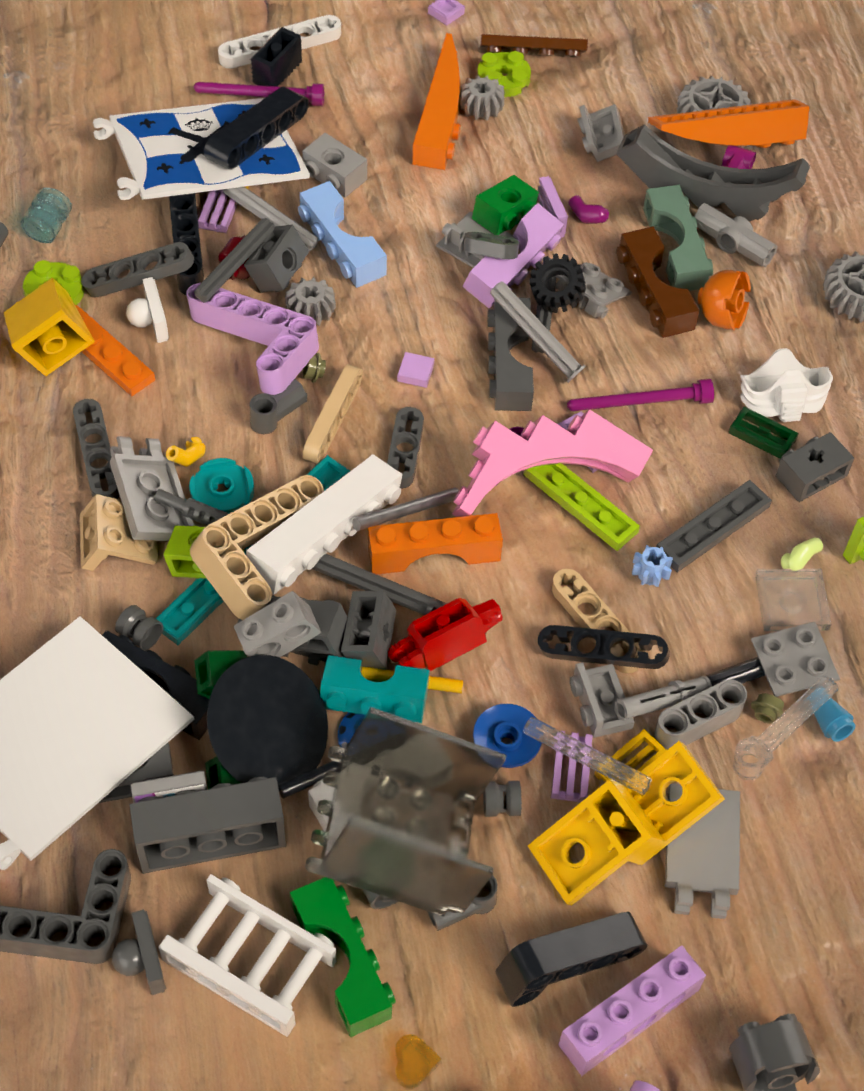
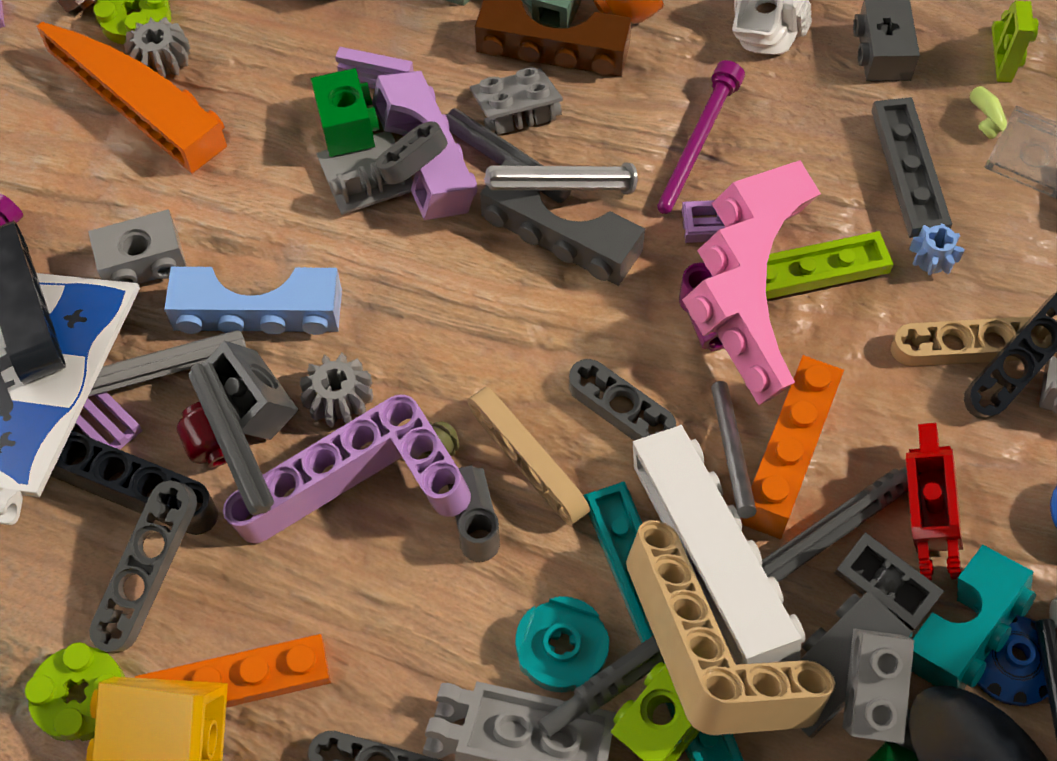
camera: 55 degrees left, 5 degrees up
(145, 311) = (216, 586): white tile -> none
(193, 452) = (485, 662): yellow arm -> none
(415, 369) = (513, 333): lavender tile -> none
(435, 683) = (987, 537): yellow bar -> none
(552, 268) = (514, 98): black tyre -> none
(588, 213) = (405, 45): magenta arm -> none
(761, 436) = (814, 63): dark green tile -> none

